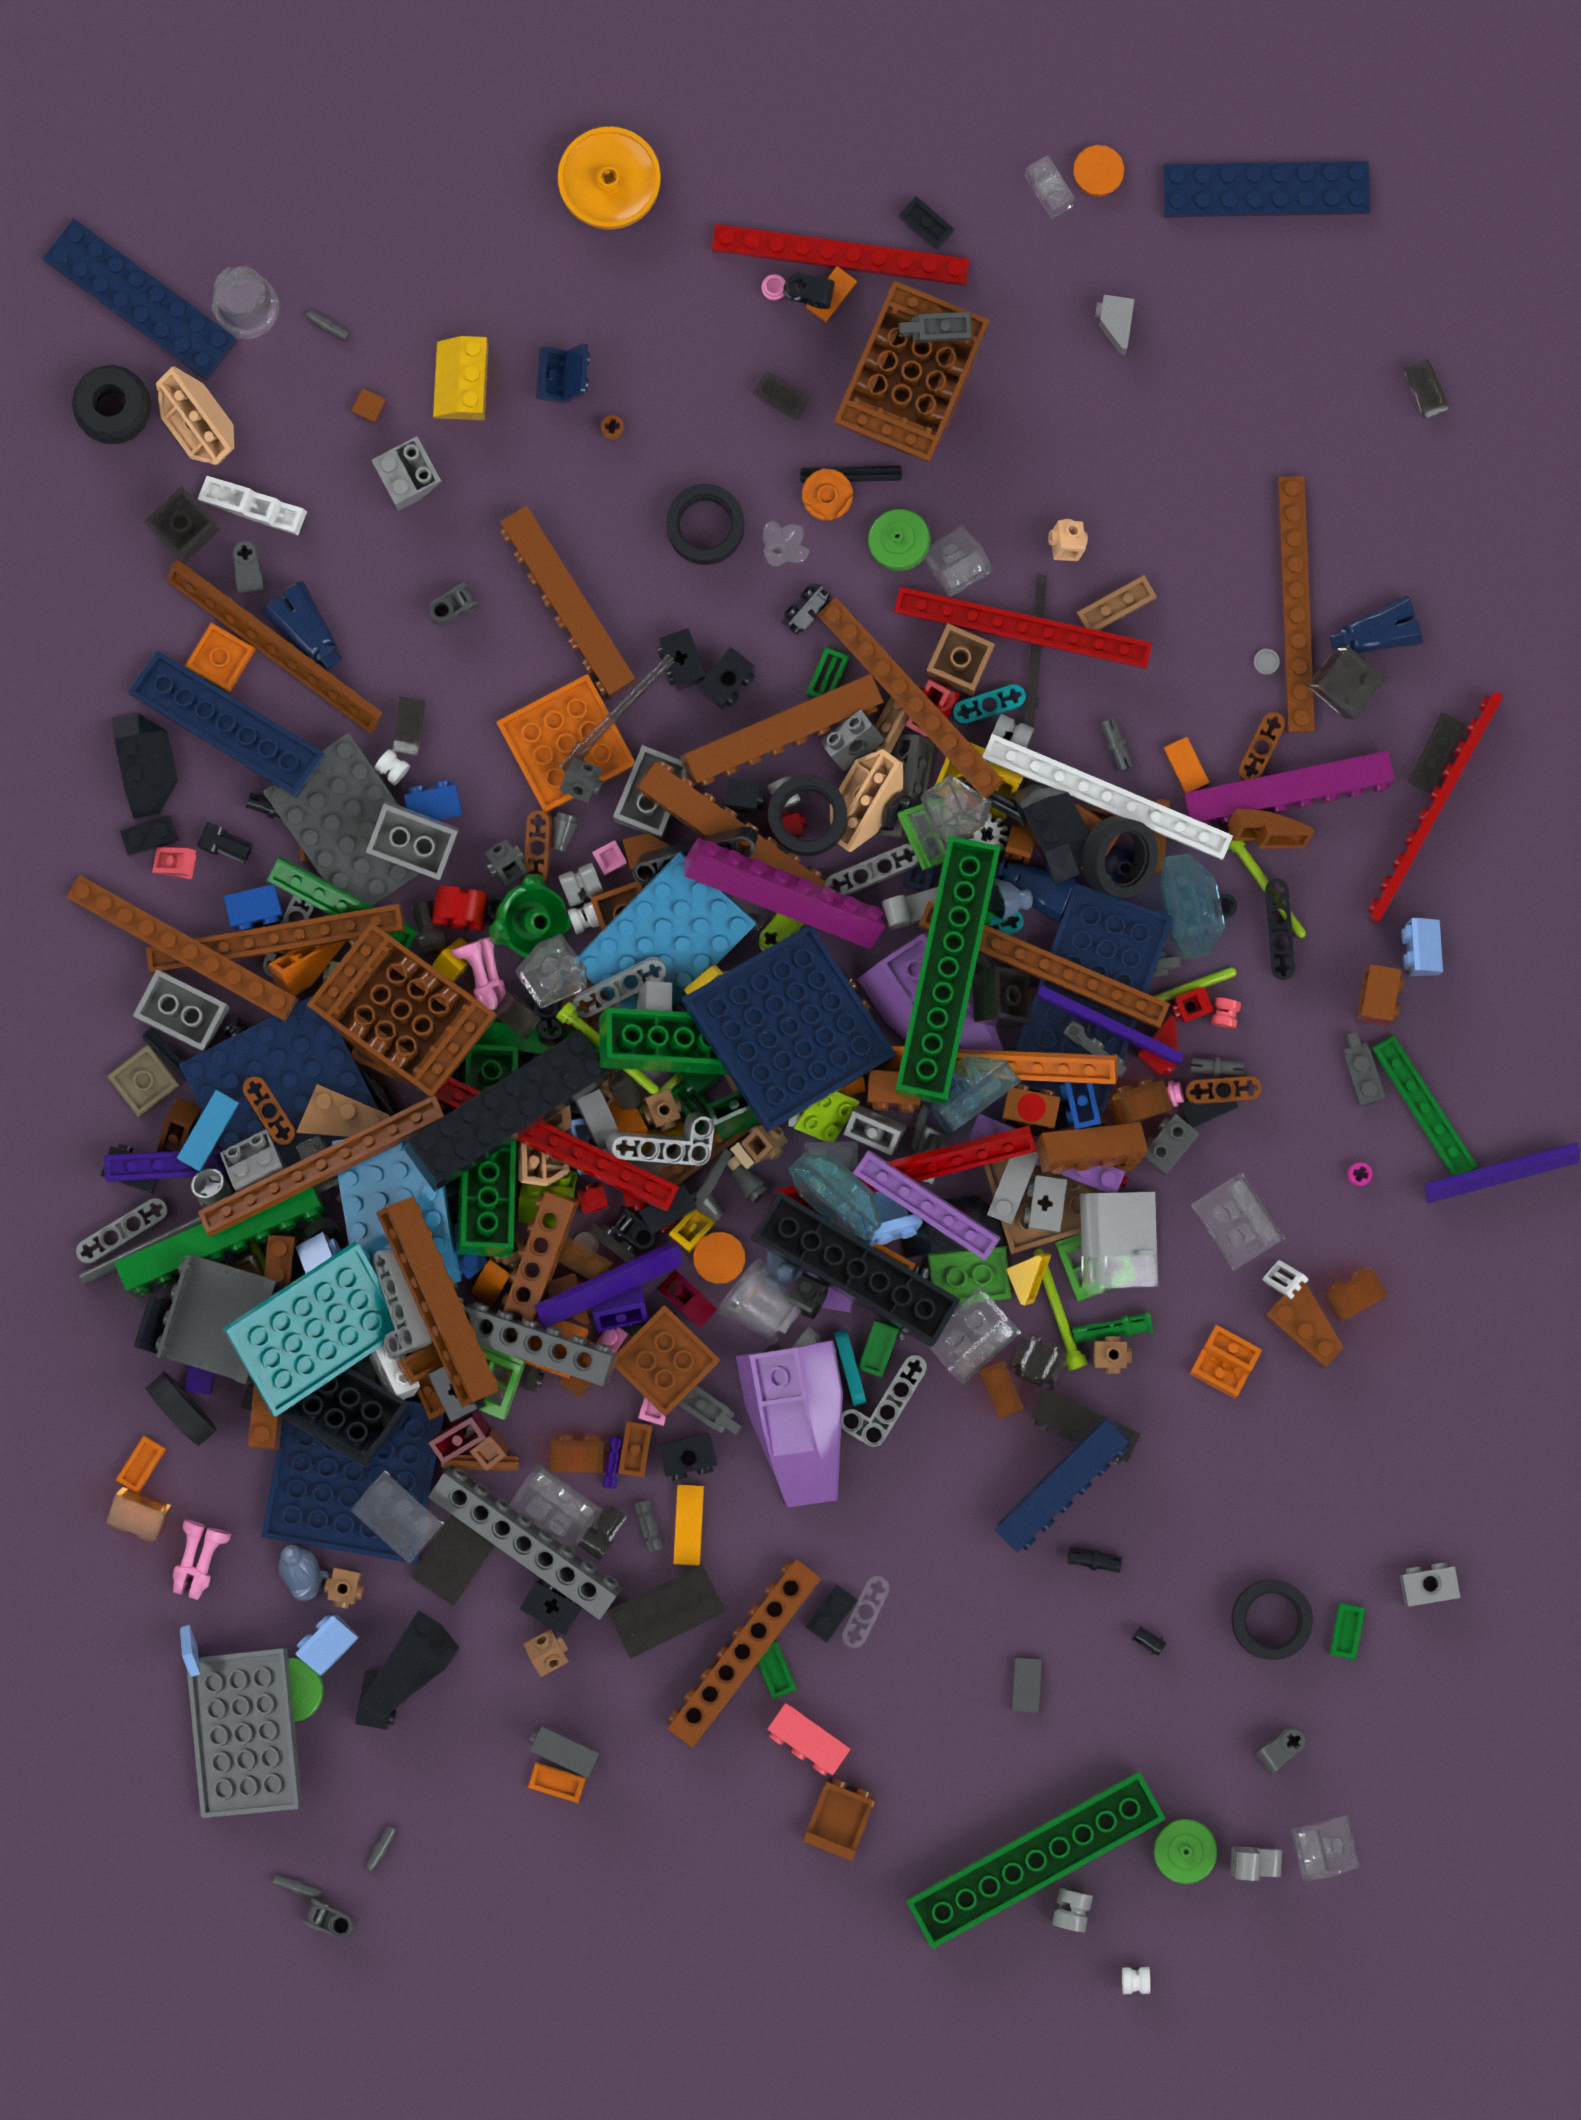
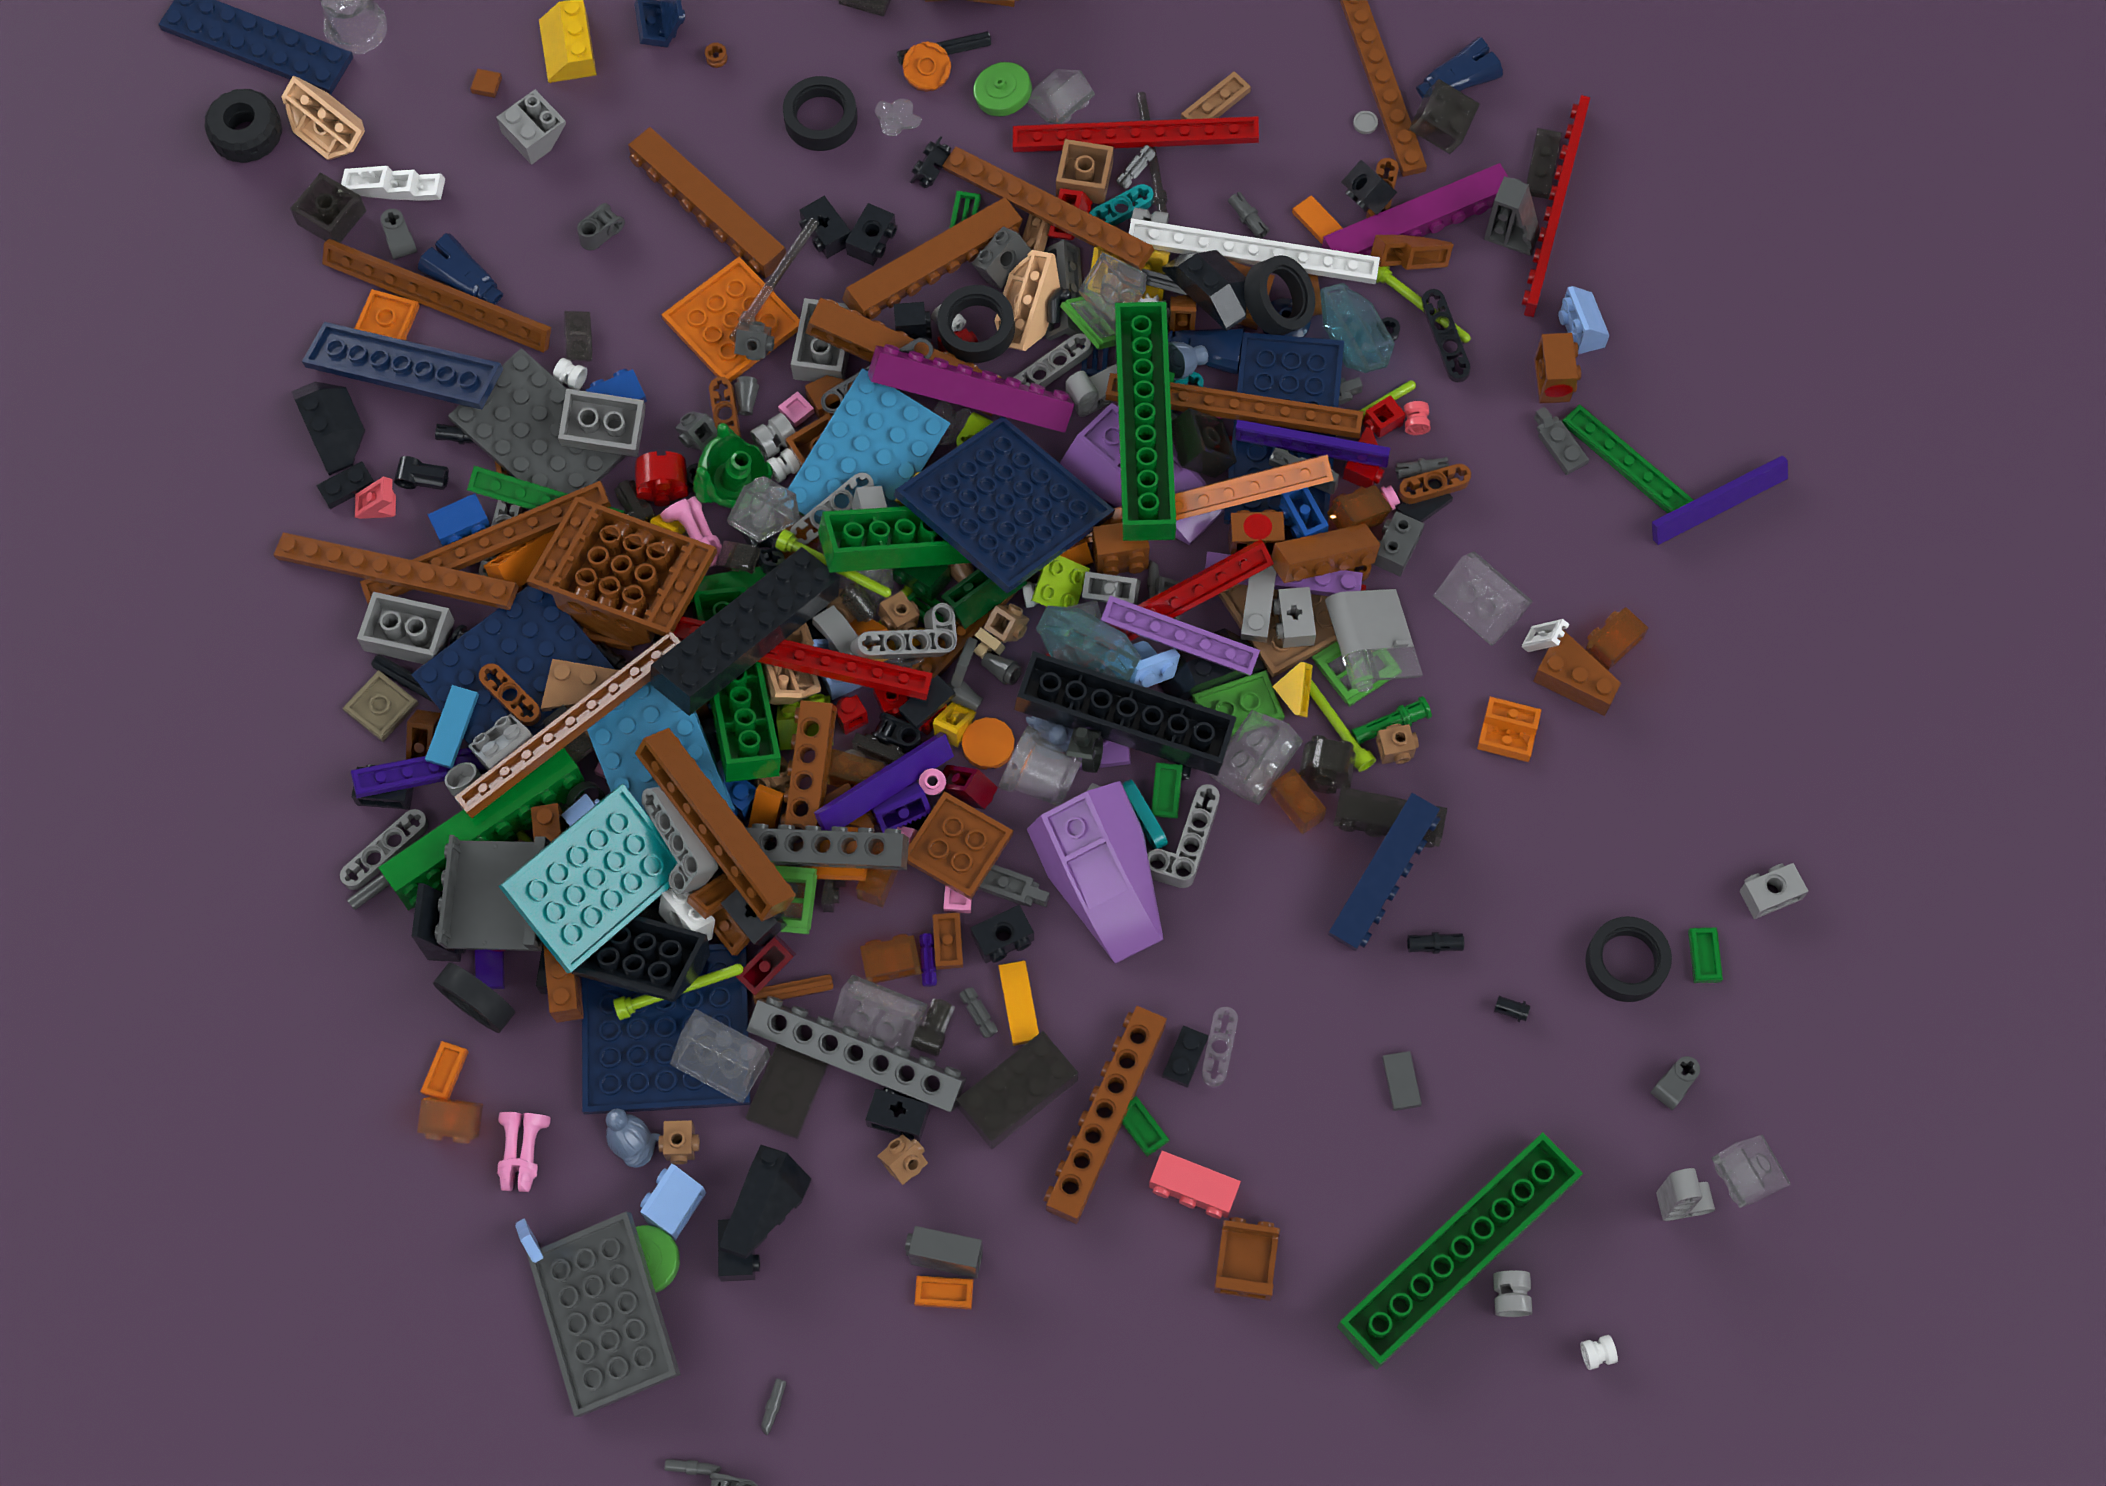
camera: 15 degrees left, 15 degrees down
(319, 1449) = (626, 1006): none -> lime piece
(327, 325) = (434, 27): dark grey piece -> none
(490, 1449) = (799, 971): dark orange panel -> none
(655, 1281) = (932, 790): none -> bright pink plate
(973, 1088) = (1199, 522): clear light blue wedge -> none
(1014, 663) = (1135, 167): none -> axle
(1068, 540) = (1157, 56): light nougat brick -> none
(1185, 1851) = (1610, 1207): bright green wheel -> none
(1244, 749) = (1368, 188): none -> black brick
(1356, 1166) = (1592, 528): dark pink bush -> none
(1384, 820) = (1513, 218): none -> dark grey wedge

